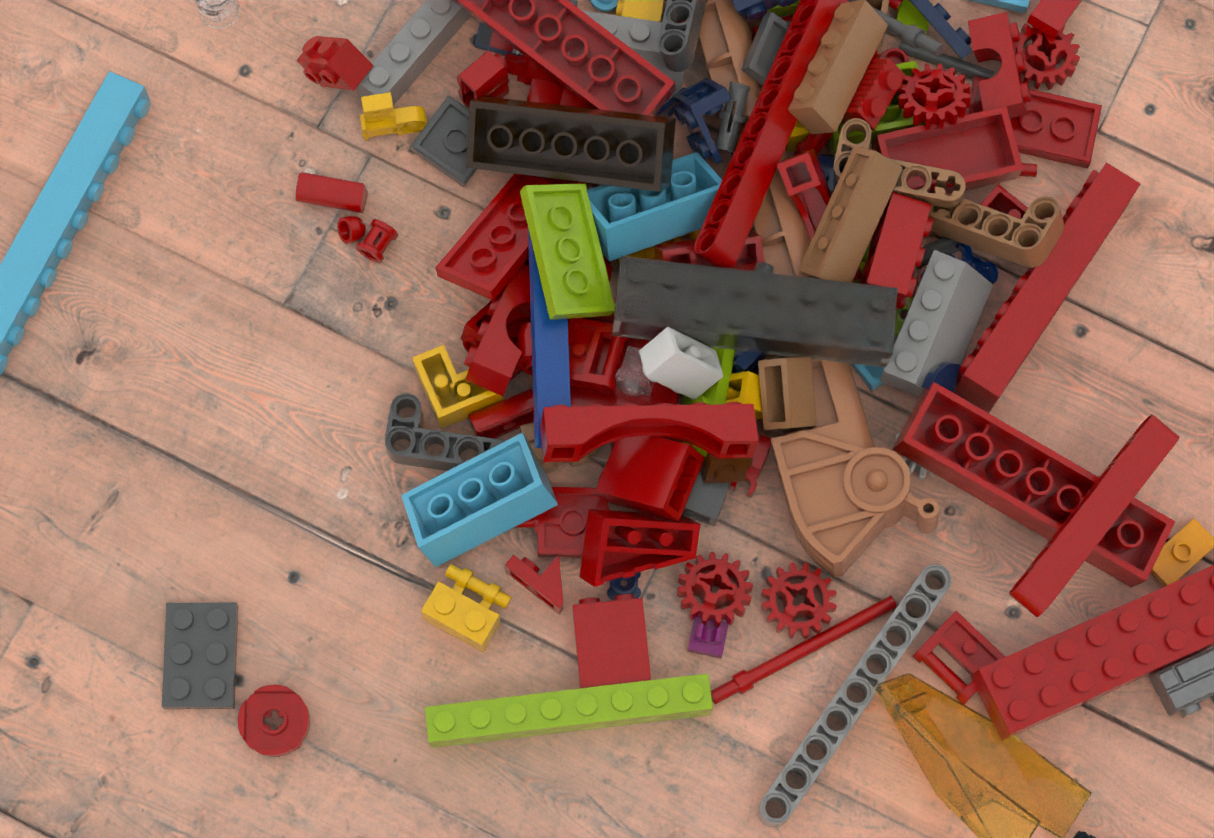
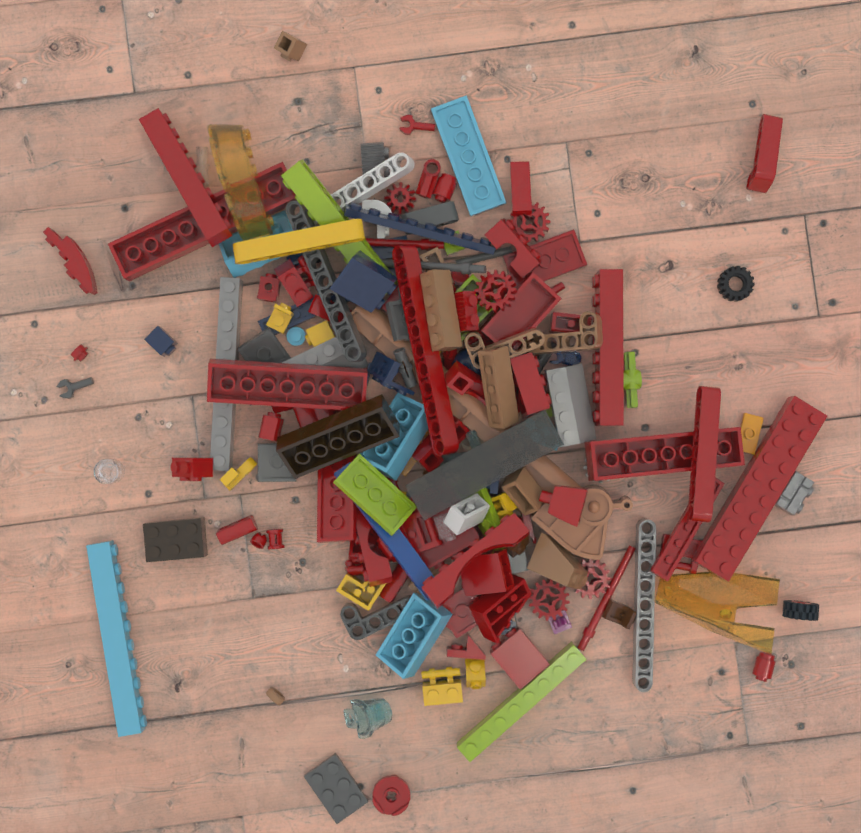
camera: 30 degrees left, 15 degrees up
(213, 457) = (275, 696): none -> medium nougat tile
(236, 148) = (175, 539): none -> dark brown brick
(327, 574) = (368, 716): none -> clear light blue container
(457, 352) = (353, 570): none -> red arm
(528, 626) = (475, 673): none -> yellow bracket
(762, 534) = (557, 563): none -> medium nougat slope
(808, 682) = (619, 614): none -> reddish brown bracket
(840, 441) = (565, 503): none -> red torso
(944, 375) = (590, 430): dark blue tile -> none
(987, 624) = (679, 542): none -> red plate
(1049, 359) = (632, 380): none -> lime axle

